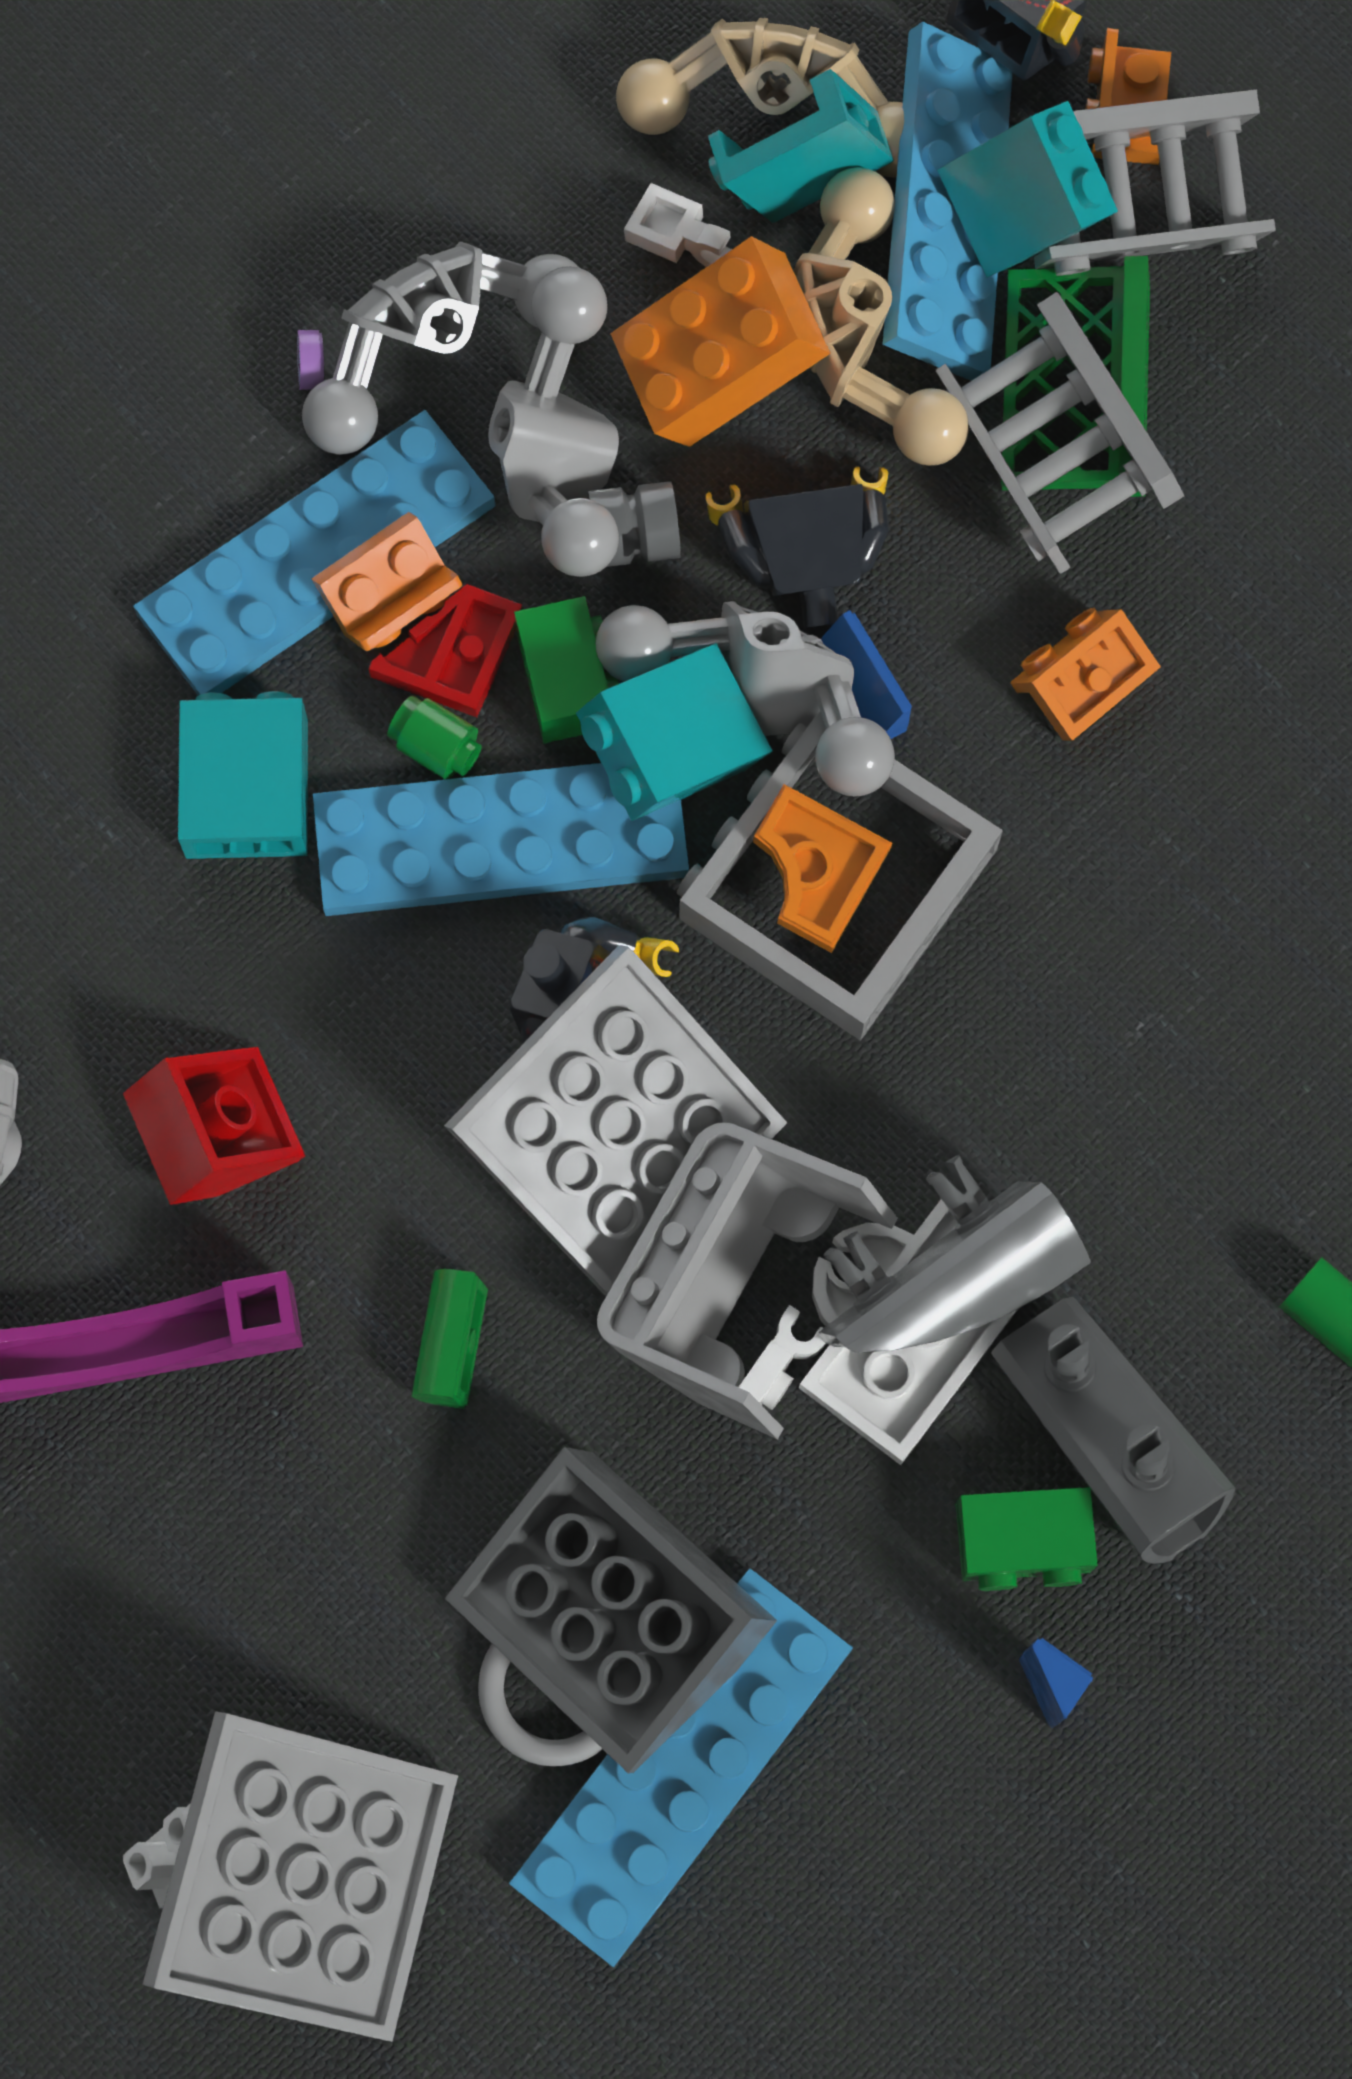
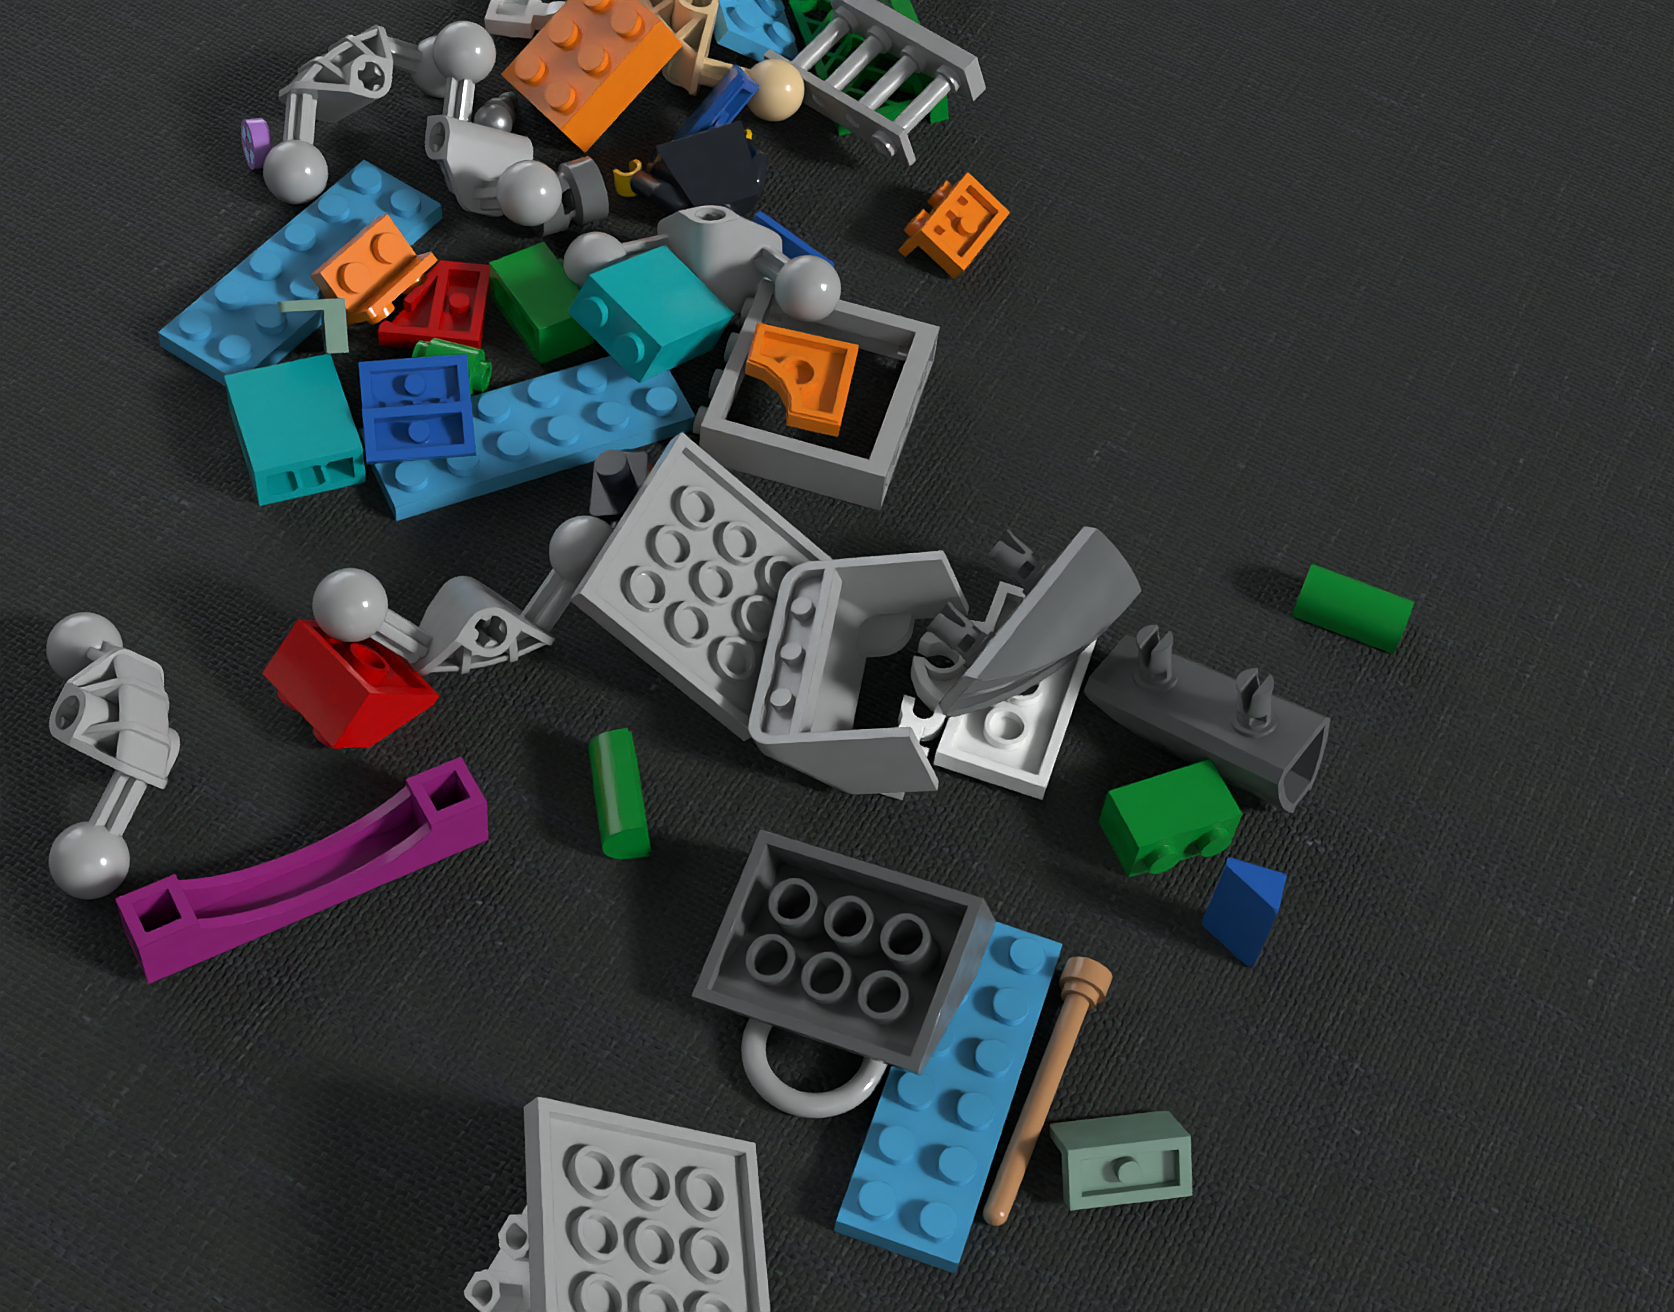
camera: 25 degrees left, 20 degrees down
(298, 640) = (332, 320): none -> sand green panel
(357, 1083) = (466, 620): none -> light grey piece
(375, 797) = (417, 409): none -> blue slope
(594, 383) = (498, 112): none -> flat silver bar
(822, 1903) = (1123, 1159): none -> sand green panel
(846, 445) = (721, 103): none -> blue slope
(852, 1706) = (1082, 987): none -> medium nougat piece

